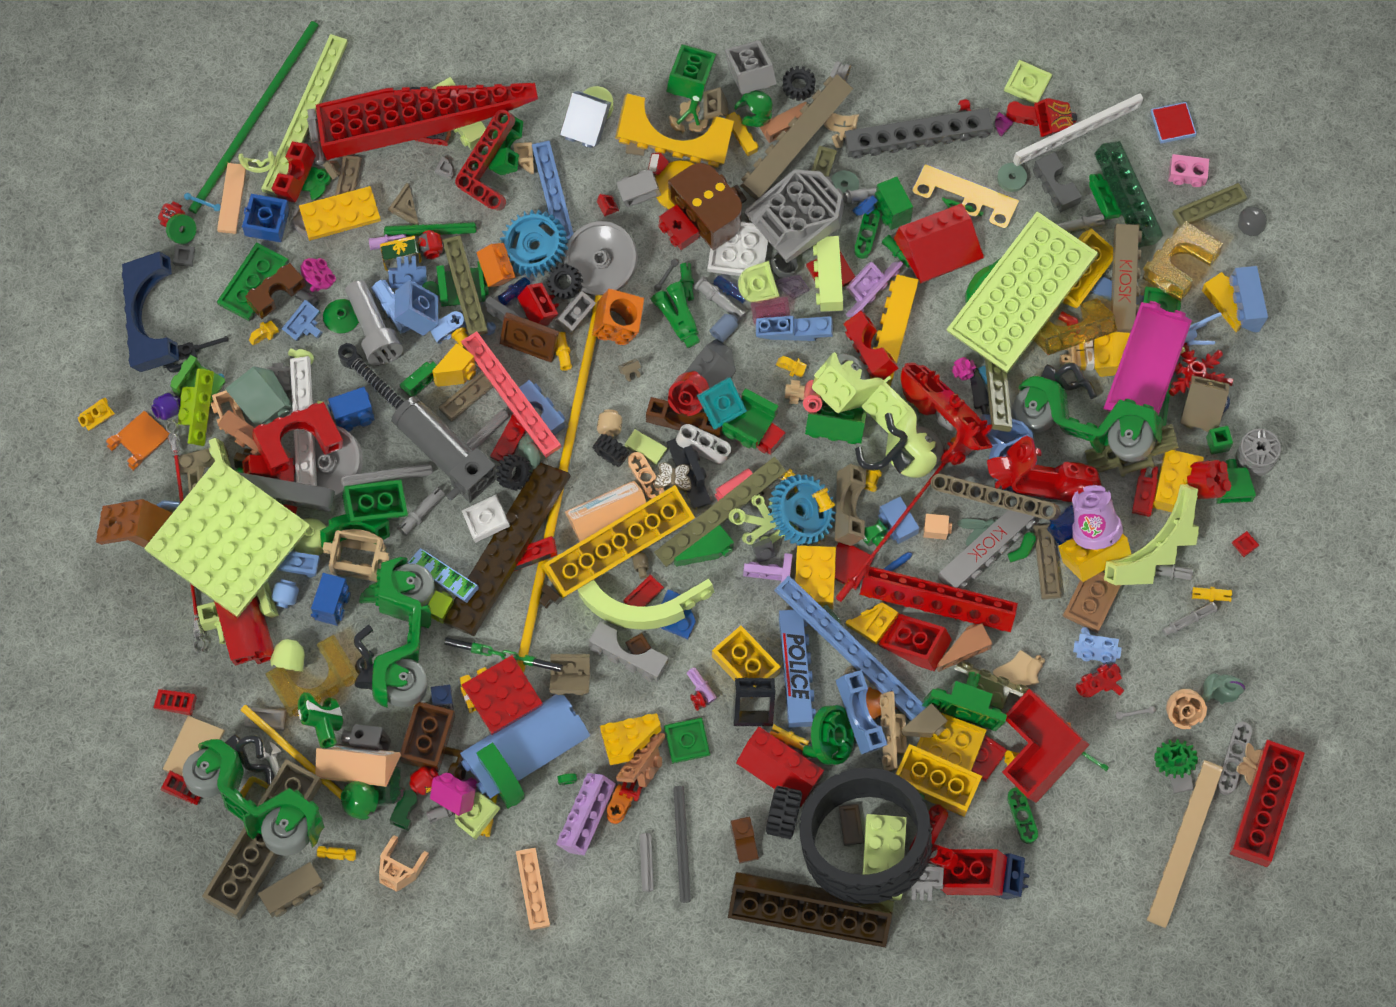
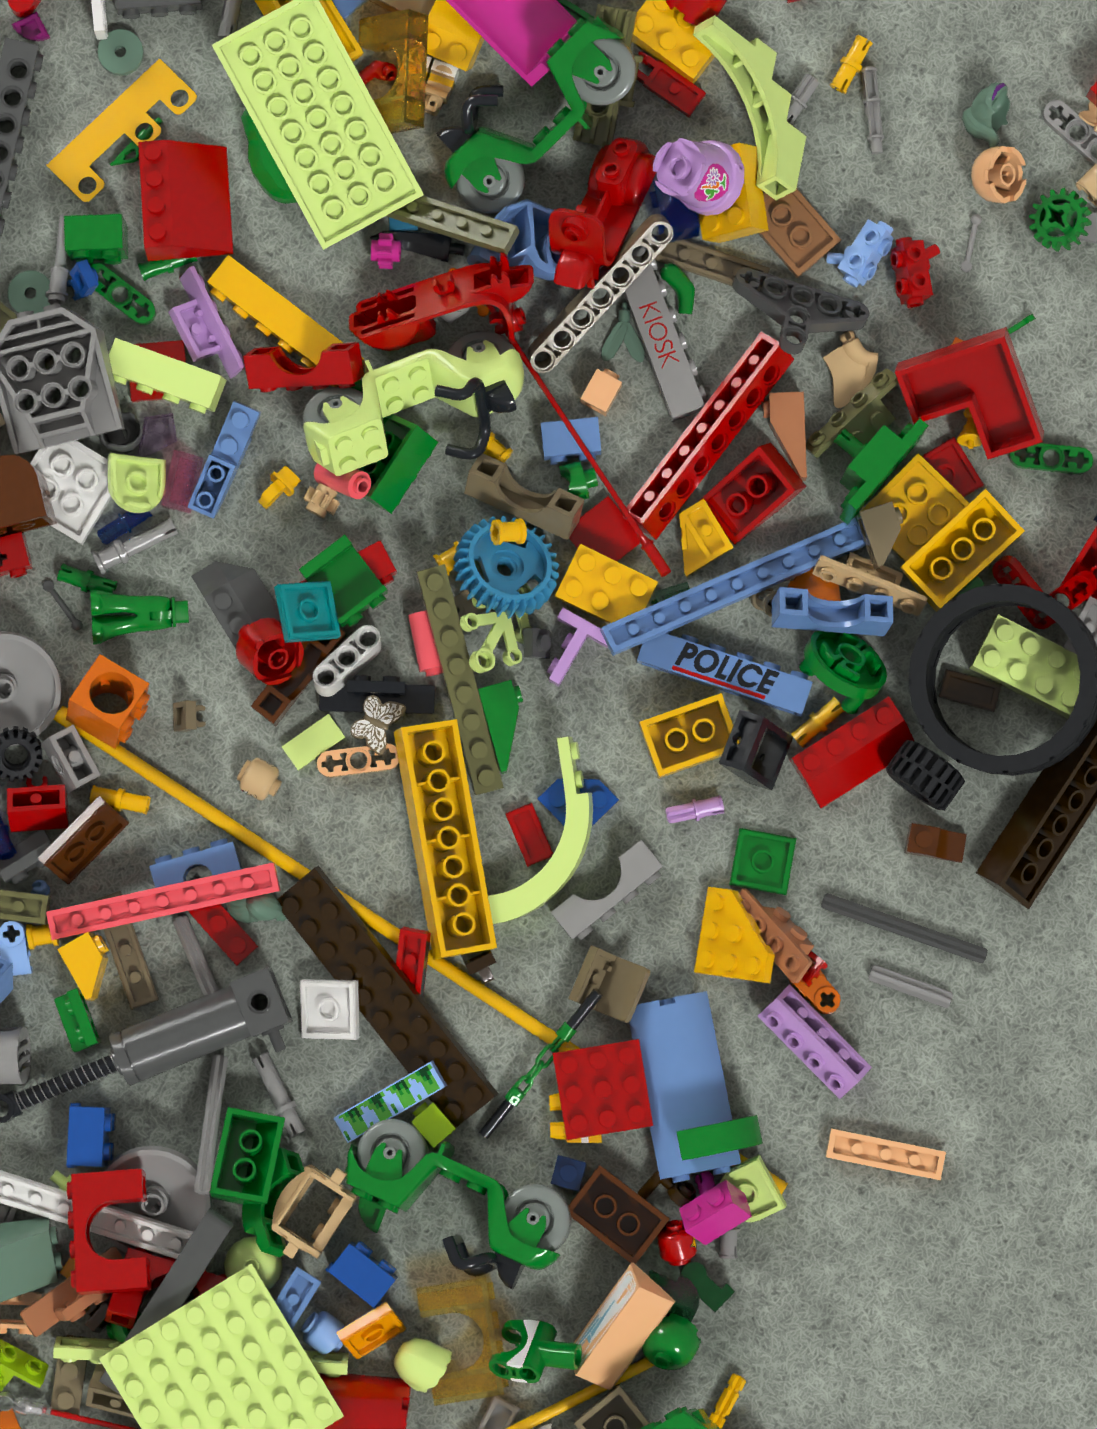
camera: 65 degrees left, 15 degrees up
(297, 618) = (371, 1330): none -> light orange tile
(367, 737) = (593, 1292): dark grey torso -> none
(395, 874) = (797, 1323): light nougat piece -> none
(505, 472) = (279, 943): black tyre -> none
(566, 779) = (753, 1046): green tile -> none
(604, 509) = (385, 837): light nougat slope -> none
(610, 450) = (303, 794): black tyre -> none
(638, 644) = (601, 872): reddish brown tile -> none
(641, 564) = (486, 820): dark tan cylinder -> none
(698, 700) = (714, 823): red bush -> none
(724, 327) = (181, 557): sand blue brick -> none
(898, 562) = (629, 469): blue piece -> none
(1043, 631) = (784, 305): none -> dark grey beam

